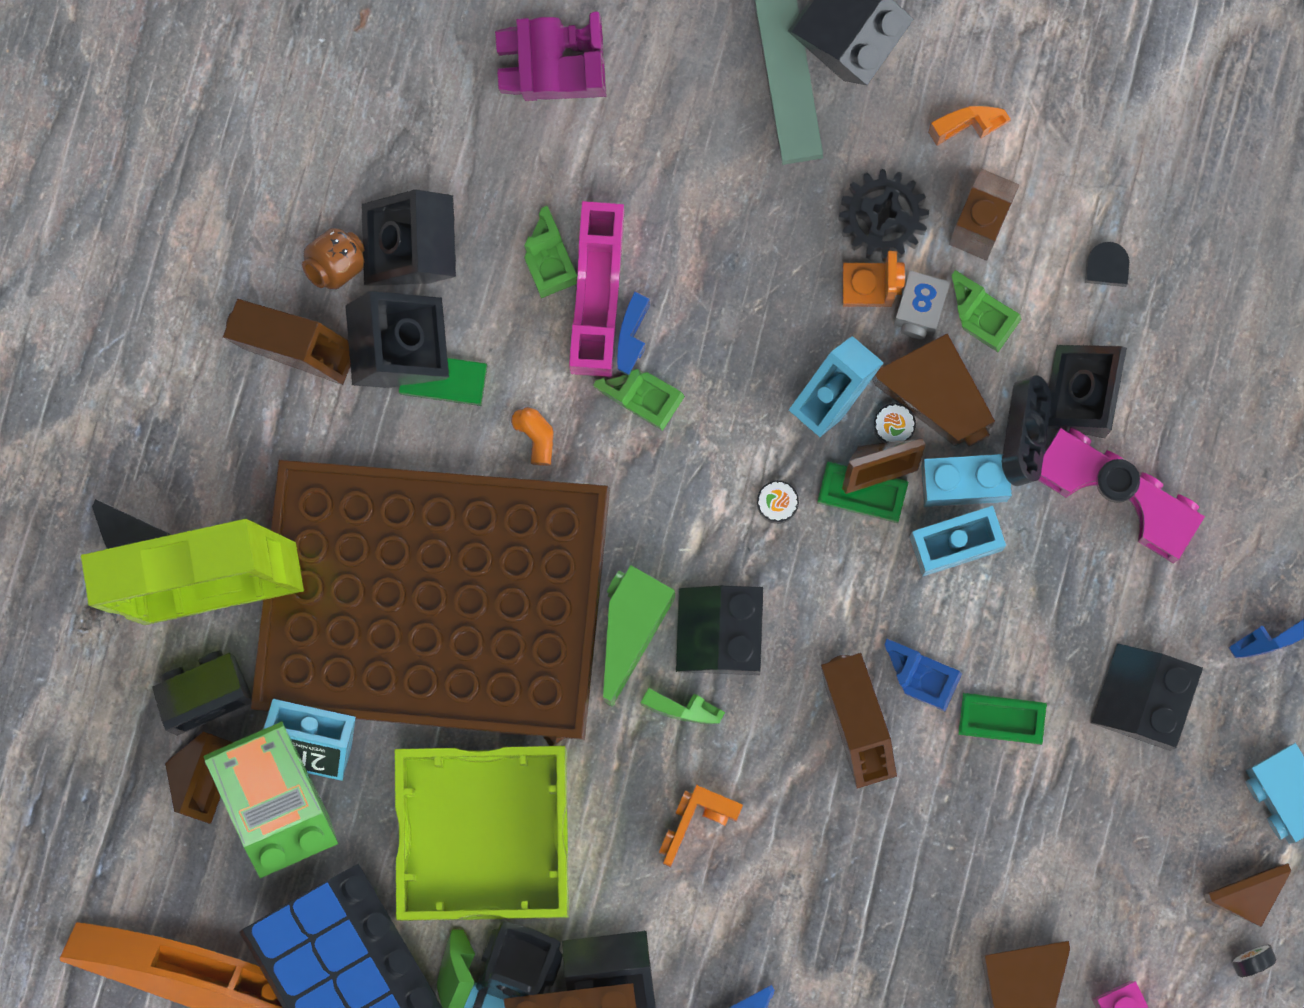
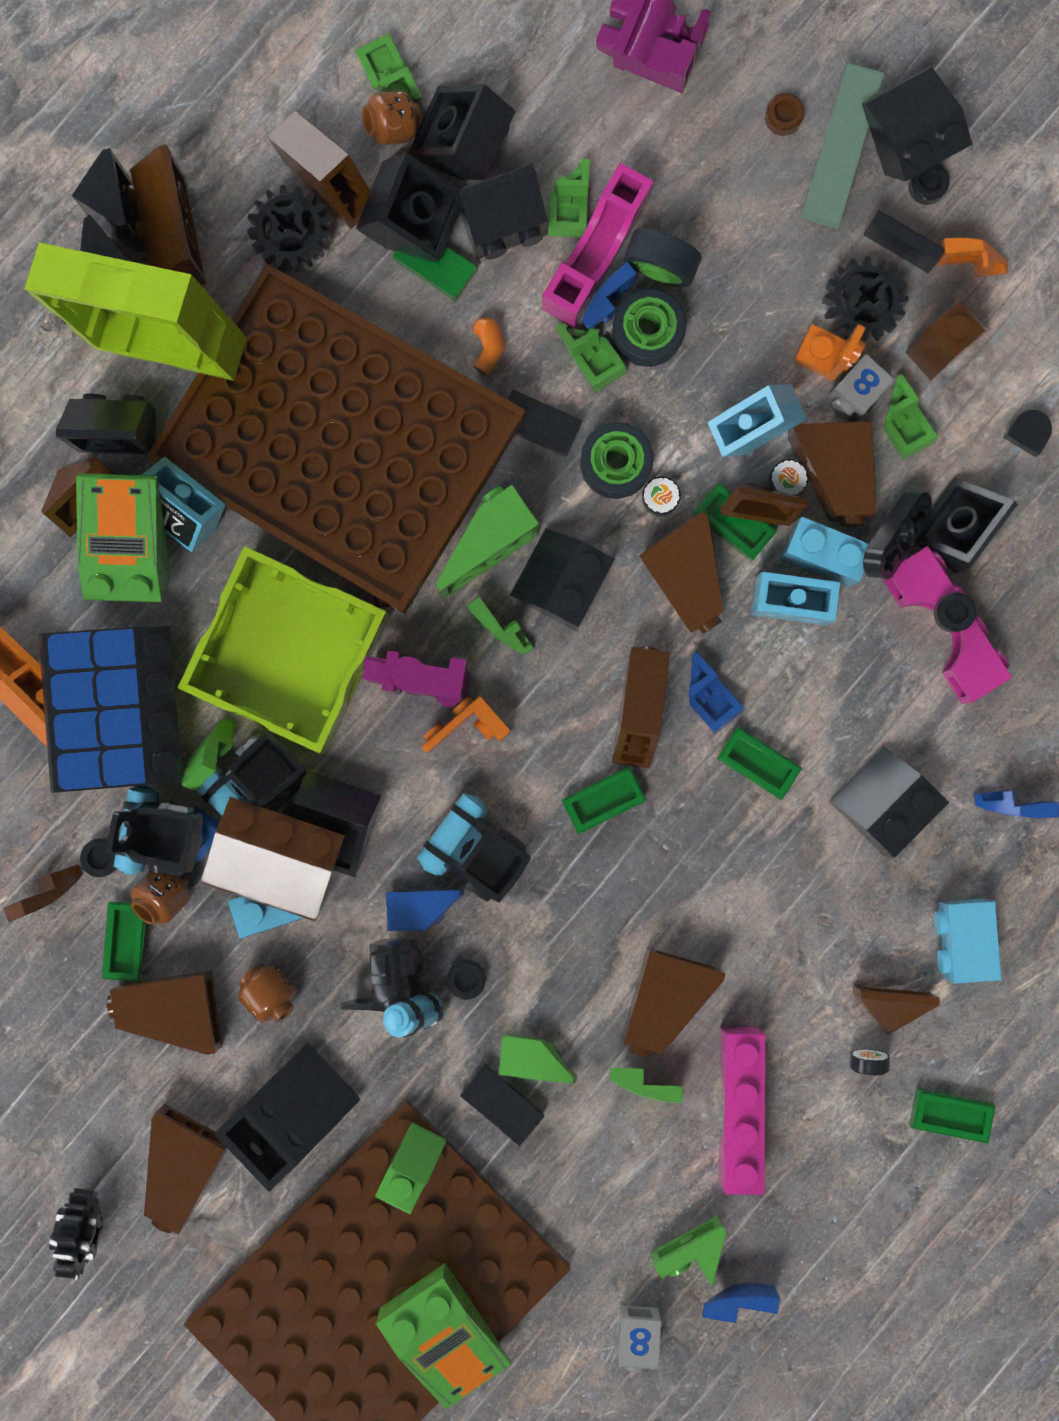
camera: 20 degrees right, 5 degrees up
(99, 476) = (106, 198): none -> black slope
(160, 469) = (165, 214): none -> reddish brown slope
(280, 432) = (289, 211): none -> black gear
(303, 211) = (385, 67): none -> bright green slope
(492, 302) = (504, 212): none -> black slope
(628, 797) = (413, 677): none -> magenta hips
(629, 485) = (546, 424): none -> black tile
(667, 271) = (662, 257): none -> black wheel
(685, 319) = (651, 306): none -> wheel
(716, 69) = (784, 114): none -> reddish brown tile
(717, 464) = (621, 439): none -> wheel
(765, 940) = (475, 851): none -> black piece
(843, 566) = (689, 573): none -> reddish brown slope
(867, 829) = (604, 800): none -> green tile
(893, 73) = (929, 185): none -> black tile
(894, 140) = (904, 241): none -> black tile

